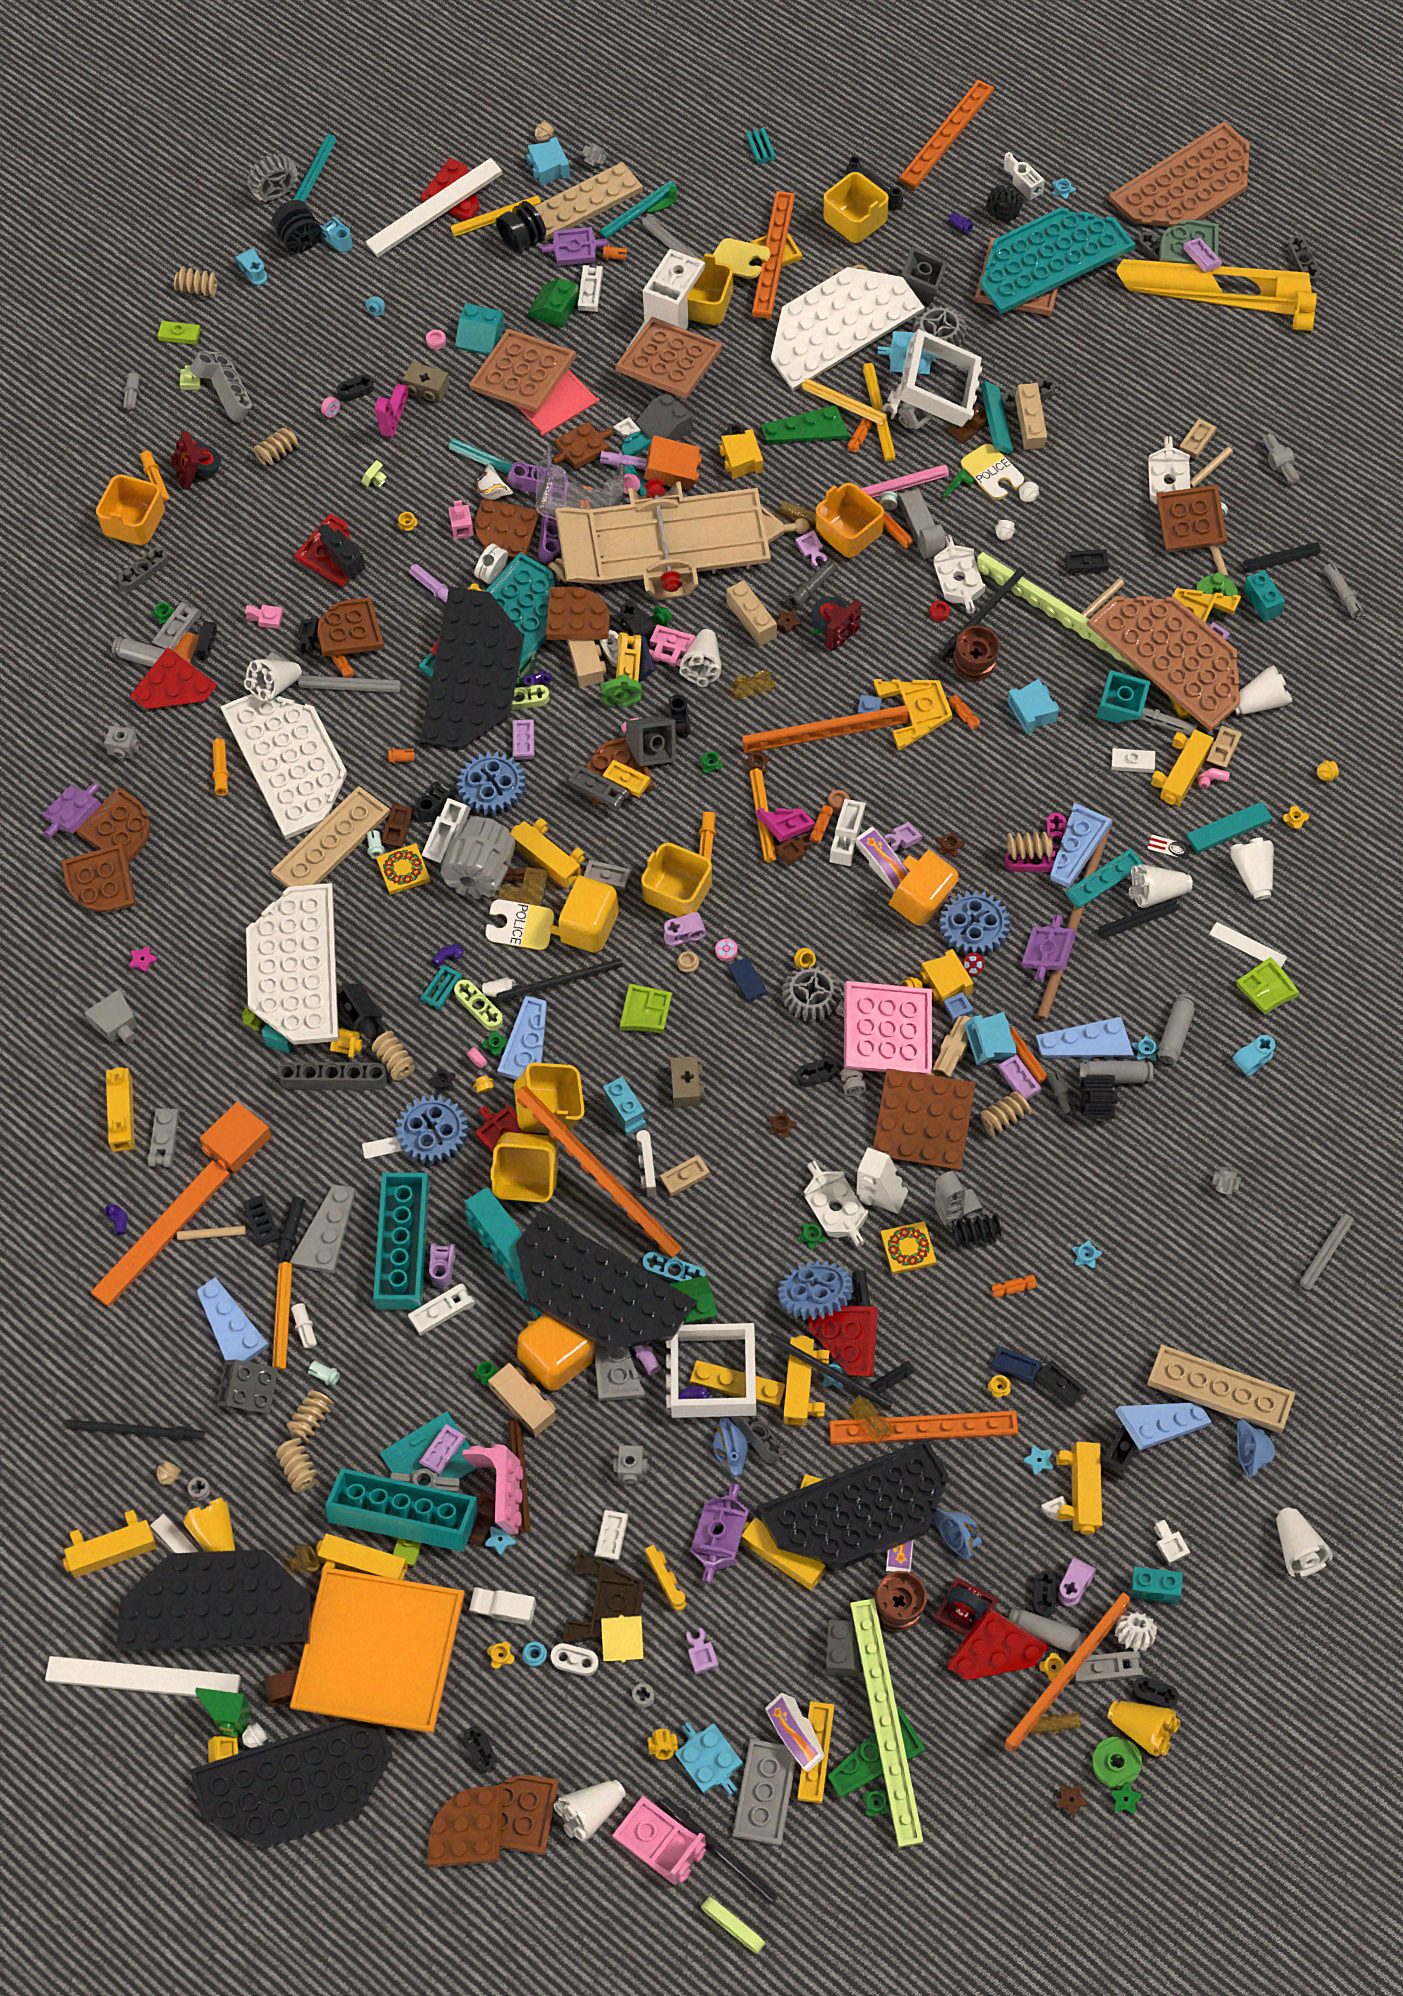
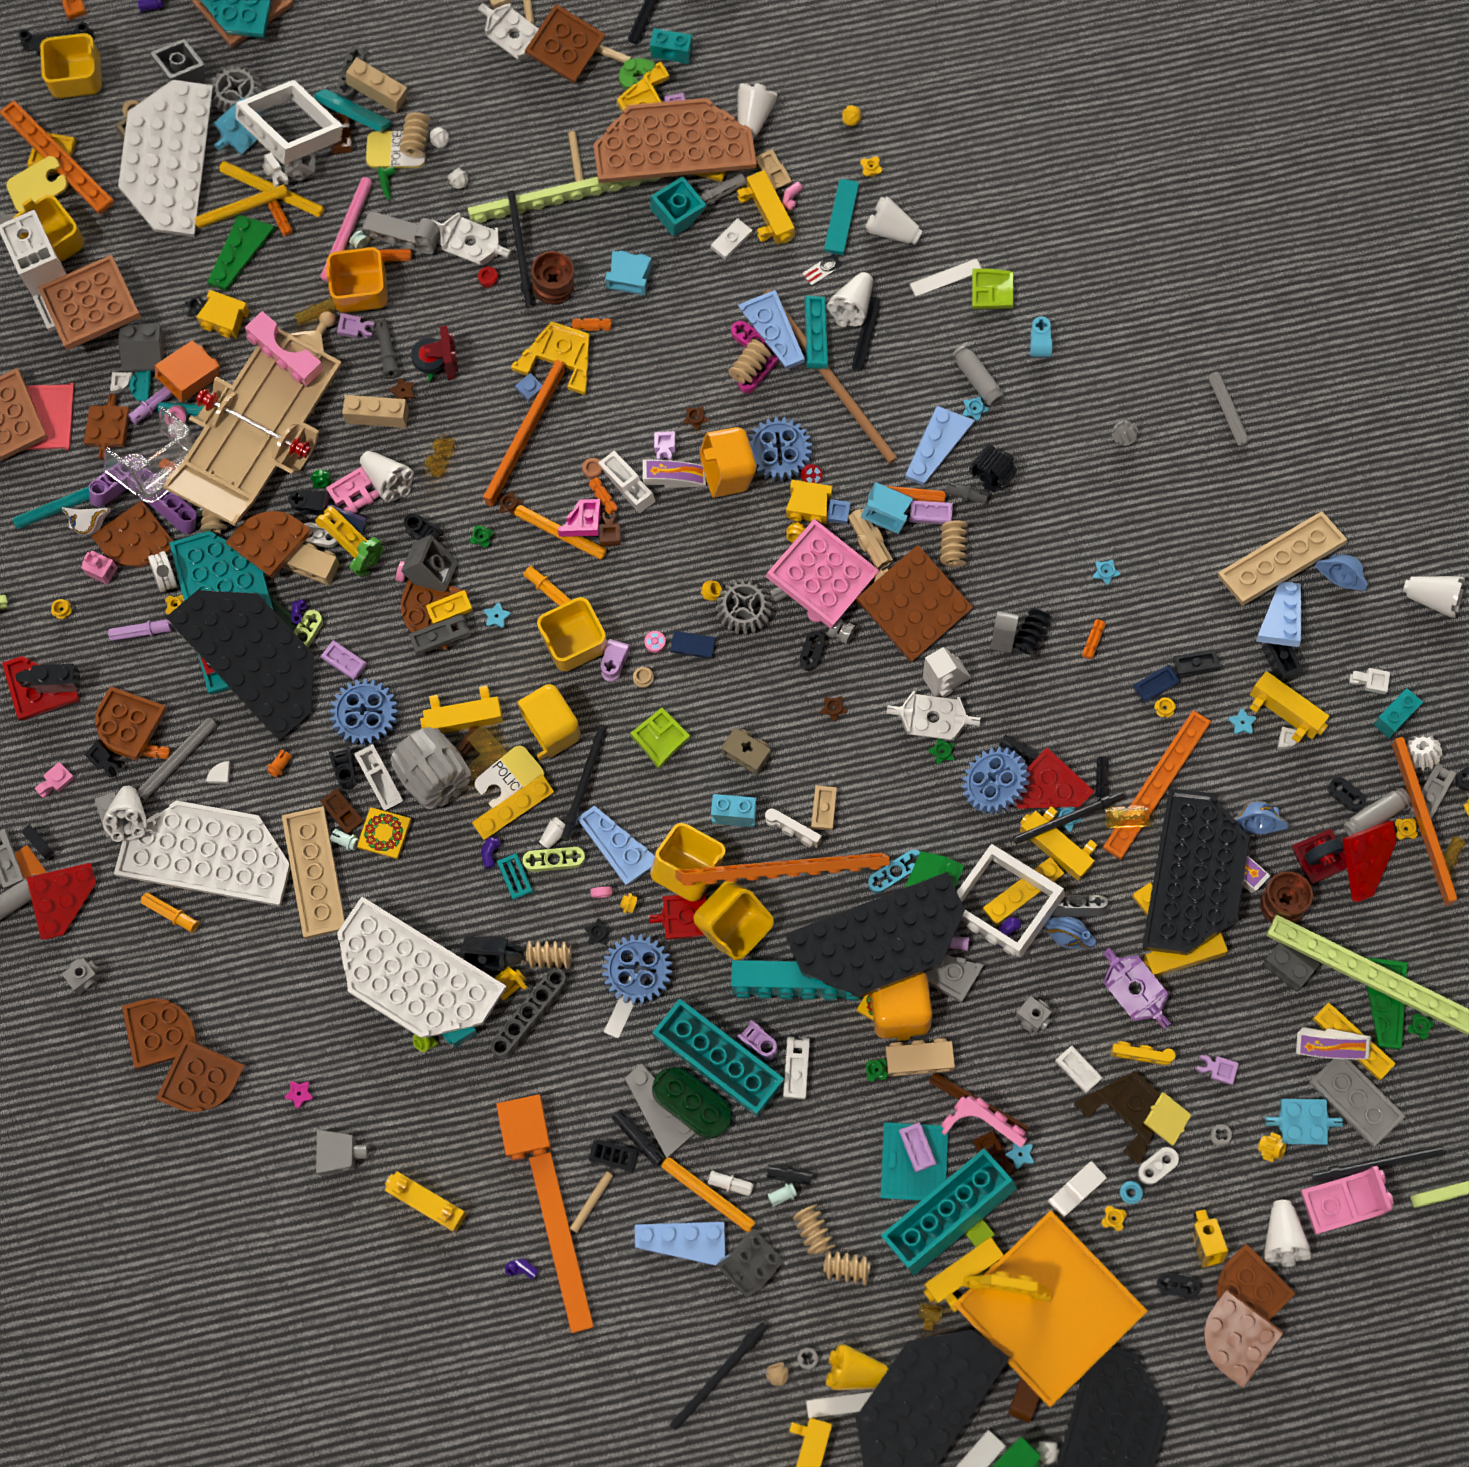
camera: 50 degrees left, 10 degrees up
(71, 809) = (110, 1058): medium lavender plate -> none
(163, 1137) = (476, 1183): light grey plate -> none
(344, 1366) = (788, 1175): none -> black pin
(349, 1248) = (691, 1102): none -> dark green tile
(360, 721) = (219, 773): none -> white tile
(369, 1596) = (1003, 1282): none -> yellow wing
(442, 1483) = (942, 1170): light grey axle -> none
(495, 1049) = (598, 875): green plate -> none
(498, 944) = (512, 807): none -> yellow plate
(536, 1744) = (1210, 1247): none -> yellow torso
(608, 874) = (519, 683): light grey plate -> none
(651, 825) = (499, 621): none -> medium azure plate
(743, 489) = (302, 365): none -> bright pink arch
(908, 1248) = (1006, 690): tile -> none
(1011, 471) = (414, 135): none -> tan piece
(1048, 948) = (843, 412): medium lavender plate -> none
(1077, 1580) = (1354, 763): lavender piece -> none
(1087, 561) = (535, 142): black plate -> none
(1123, 1070) = (980, 439): light grey axle -> none

